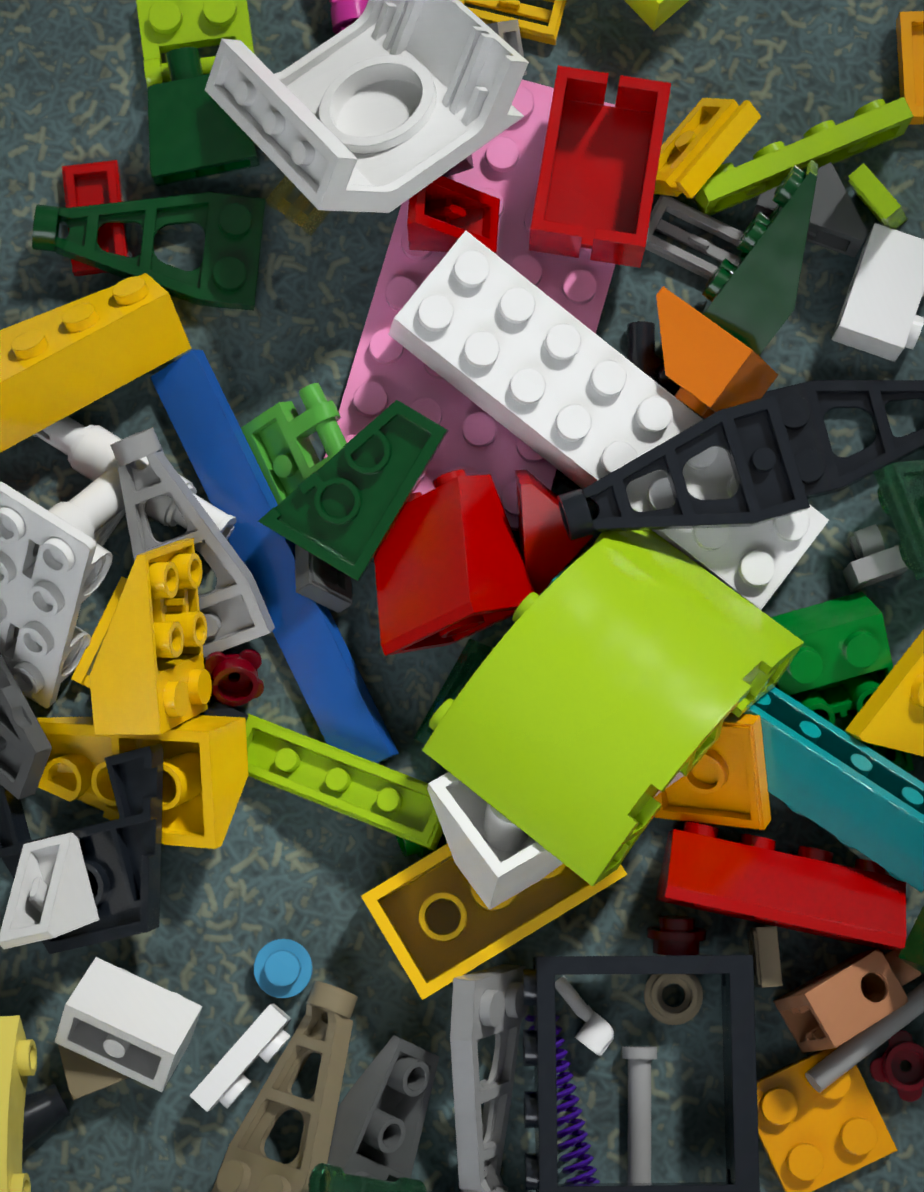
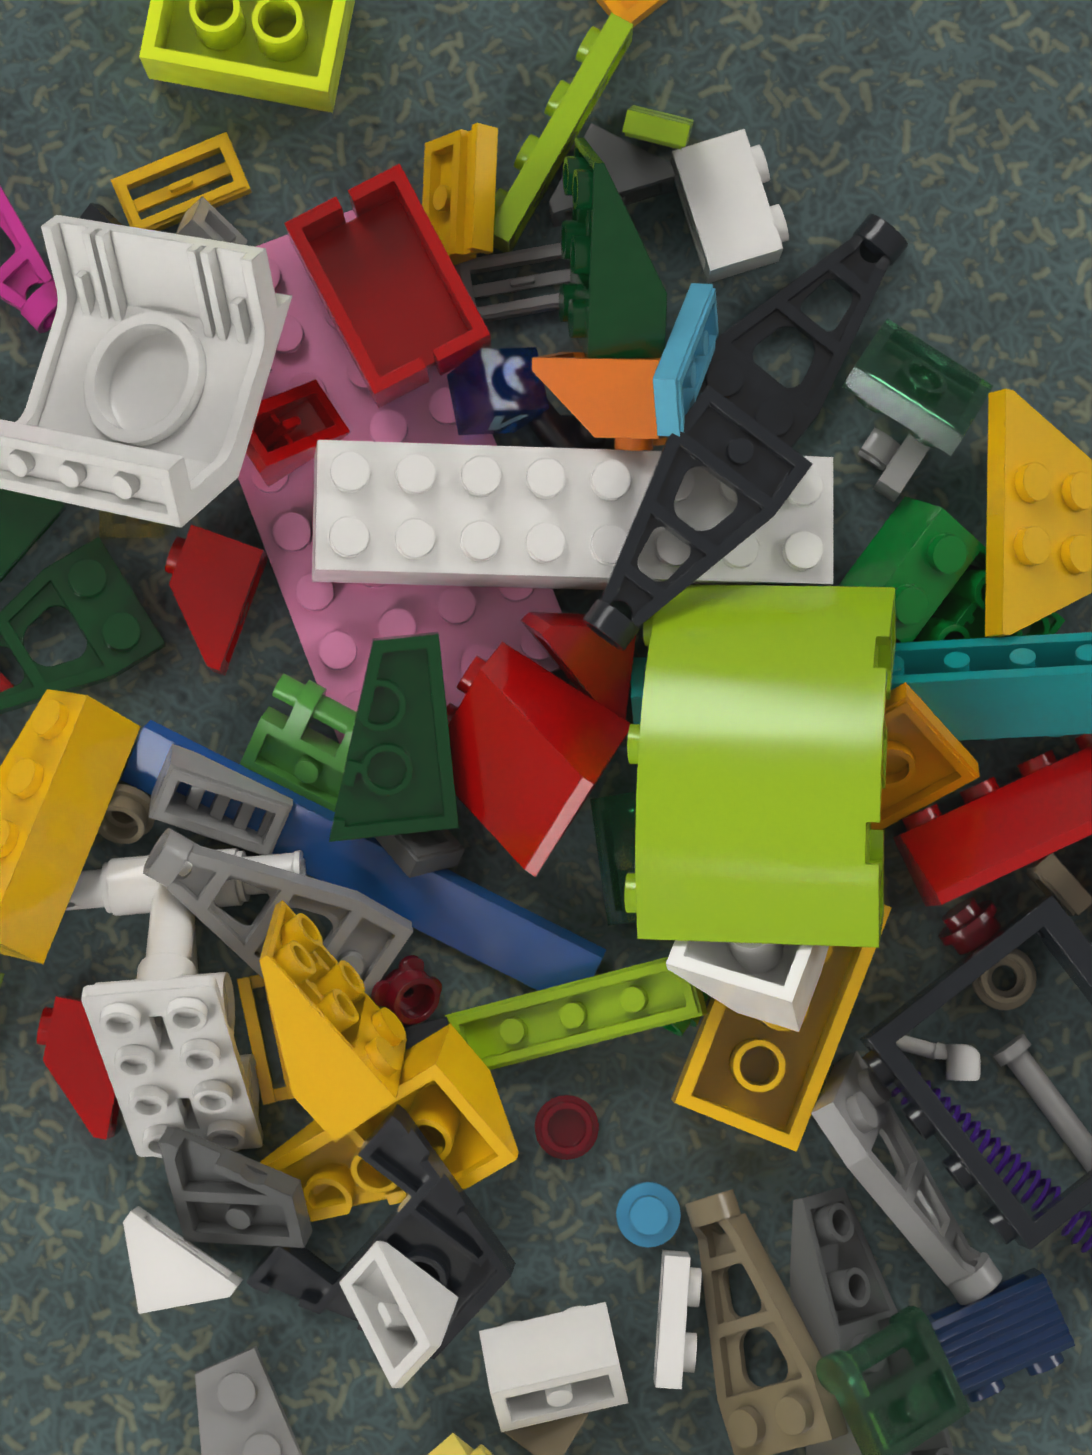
camera: 40 degrees left, 5 degrees up
(134, 403) = (126, 815): none -> dark tan plate
(178, 435) = (205, 774): none -> light grey slope
(273, 860) = (566, 1127): none -> dark red plate
(316, 294) = (214, 588): none -> red slope
(620, 298) = (496, 391): none -> clear blue brick
(773, 369) = (685, 359): none -> medium azure tile

